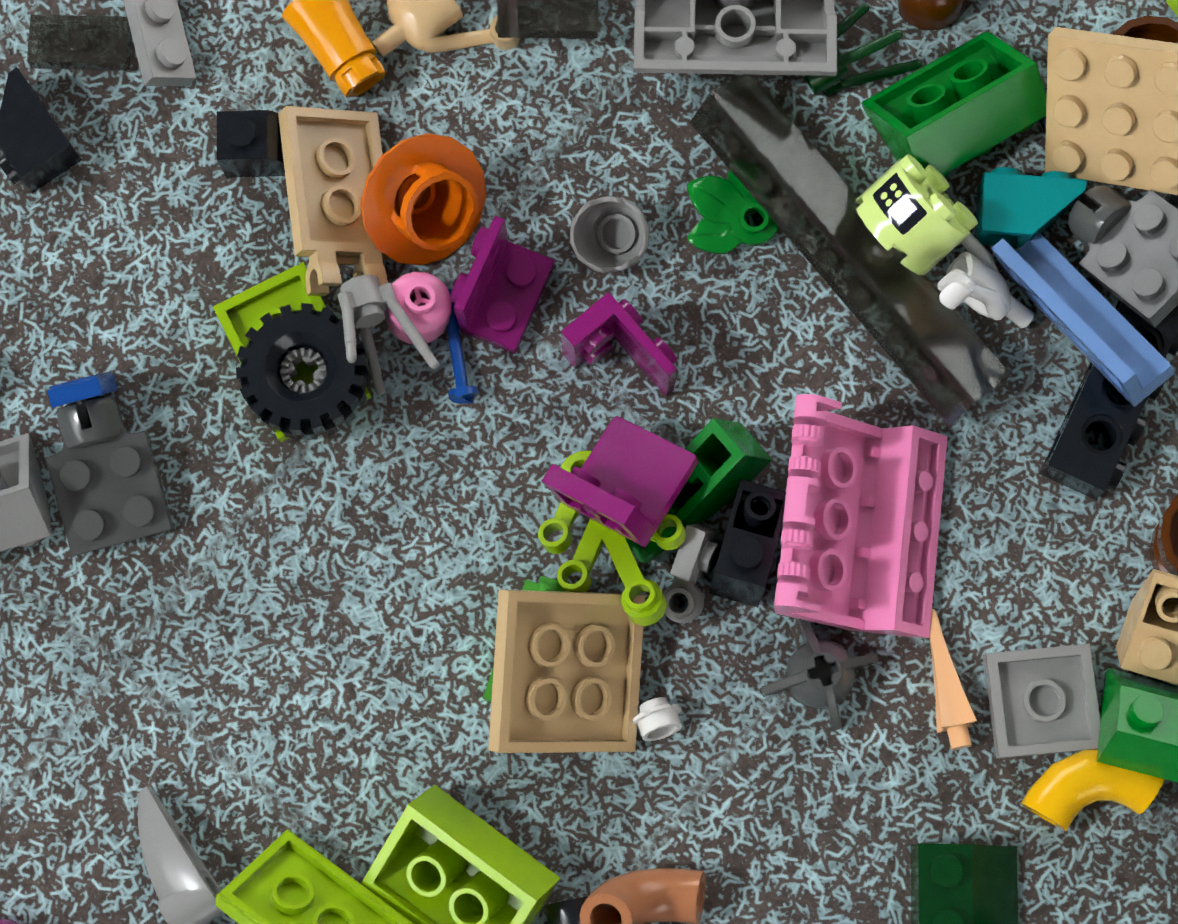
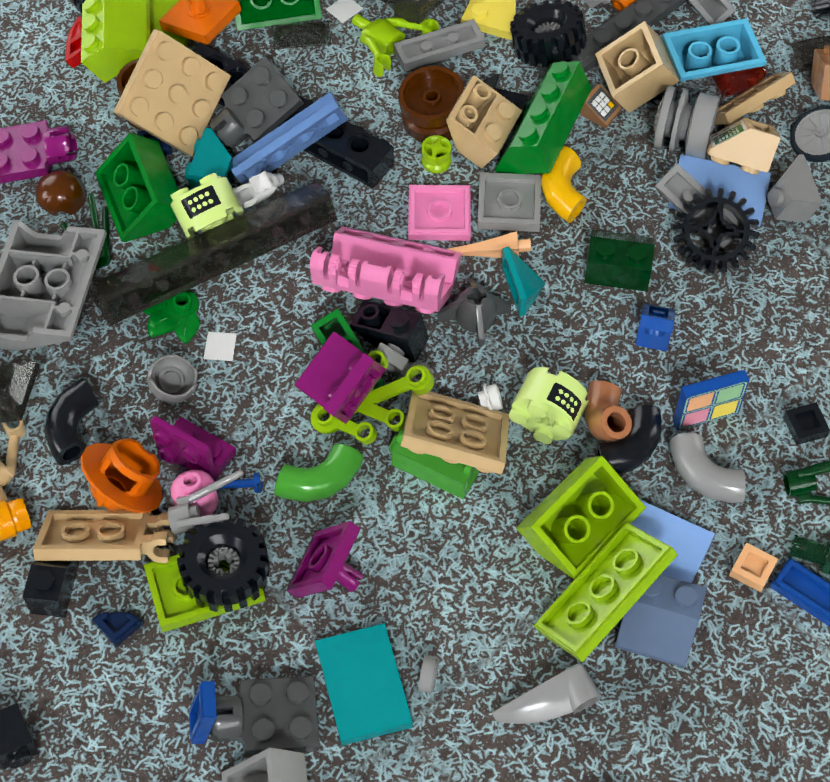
camera: 85 degrees left, 20 degrees down
(172, 600) = (363, 684): none -> teal tile
(190, 688) = (428, 674): none -> light grey tile
(218, 248) = (117, 625): none -> dark blue tile
(332, 514) = (326, 562): none -> magenta tile
(474, 486) = (322, 480): none -> bright green cylinder
(521, 97) = (64, 420): none -> black cylinder
(590, 334) = (248, 369): magenta bracket -> none
(638, 810) = (549, 405): none -> yellowish green brick
(696, 292) = (220, 346): none -> white sticker
(886, 744) = (521, 280): none -> teal slope
(1006, 589) = (439, 212): none -> bright pink tile
(1130, 565) = (435, 146): none -> lime wheel

